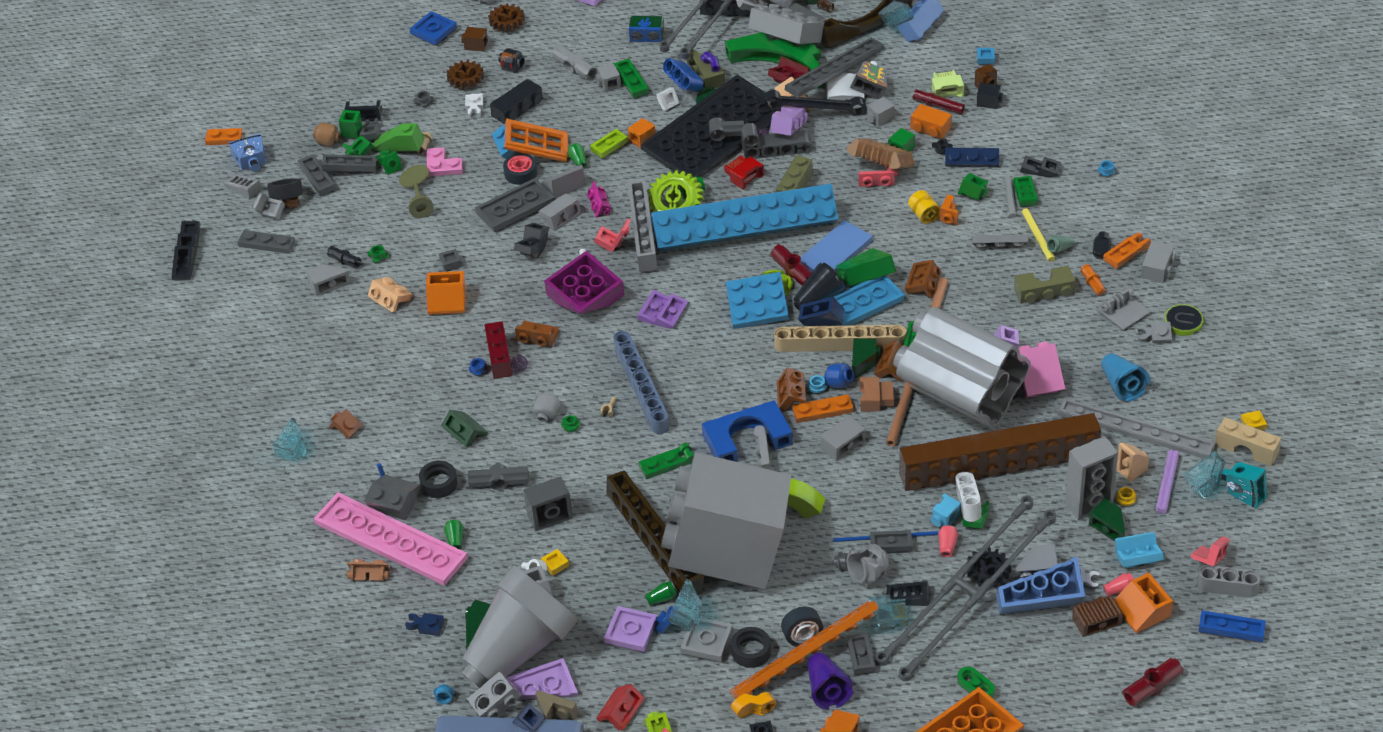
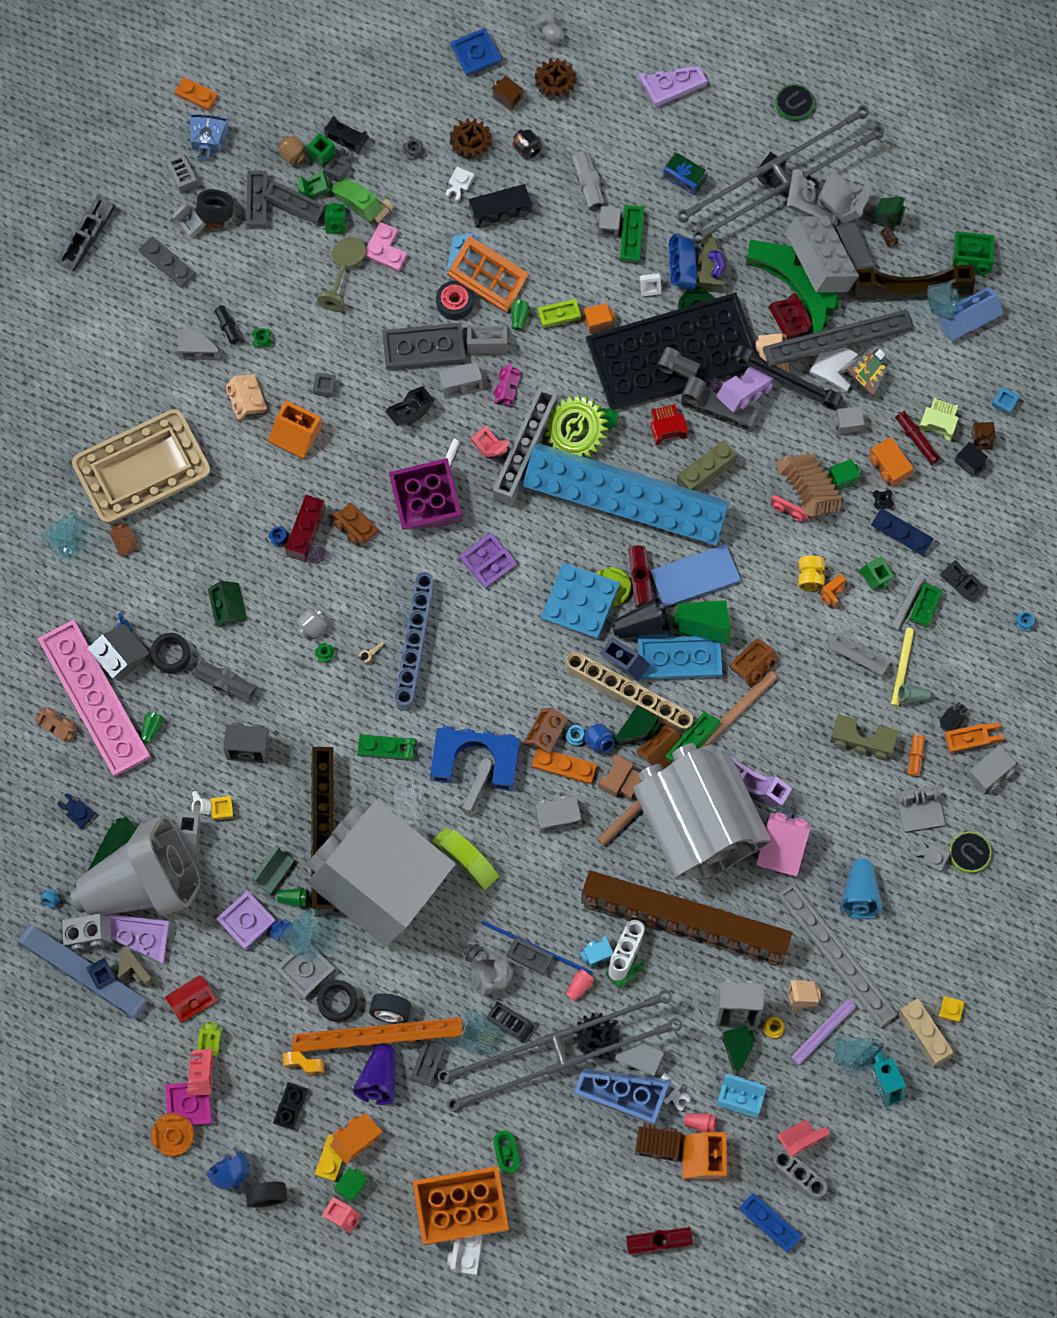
camera: 25 degrees right, 25 degrees up
(331, 368) = (141, 466): none -> tan wedge
(629, 584) = (272, 870): none -> sand green panel

